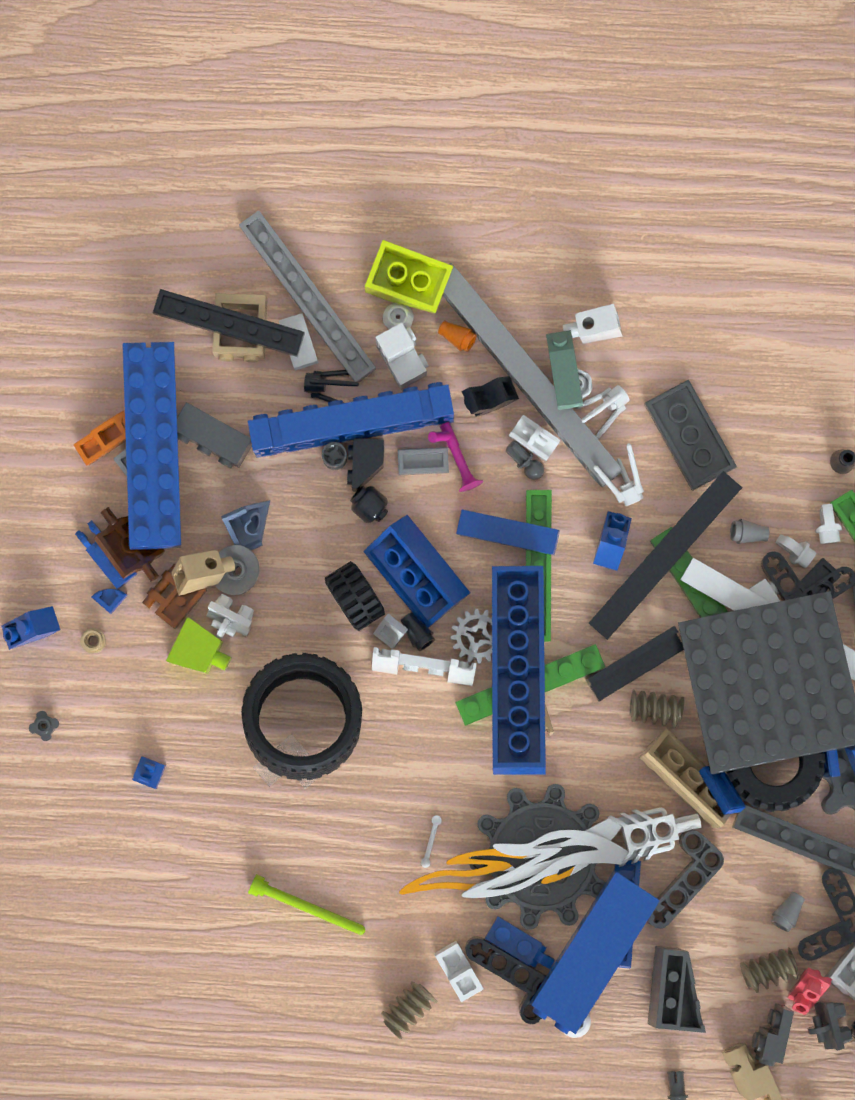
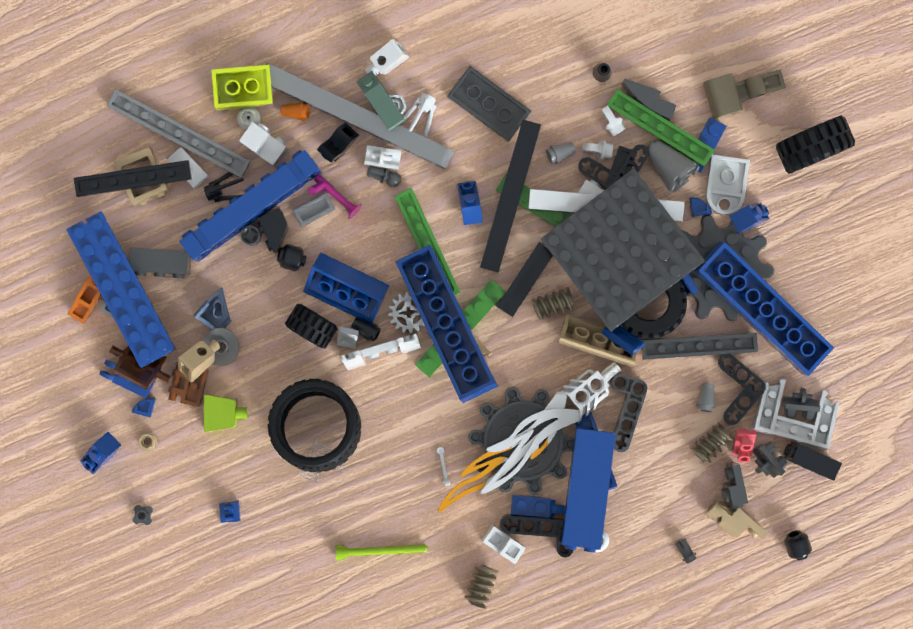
camera: 25 degrees left, 5 degrees up
(227, 620) = (233, 384): white hips -> none
(508, 532) = (395, 231): blue tile -> none
(630, 491) = (466, 161): white plant -> none
(673, 992) = (654, 489): dark grey wedge -> none

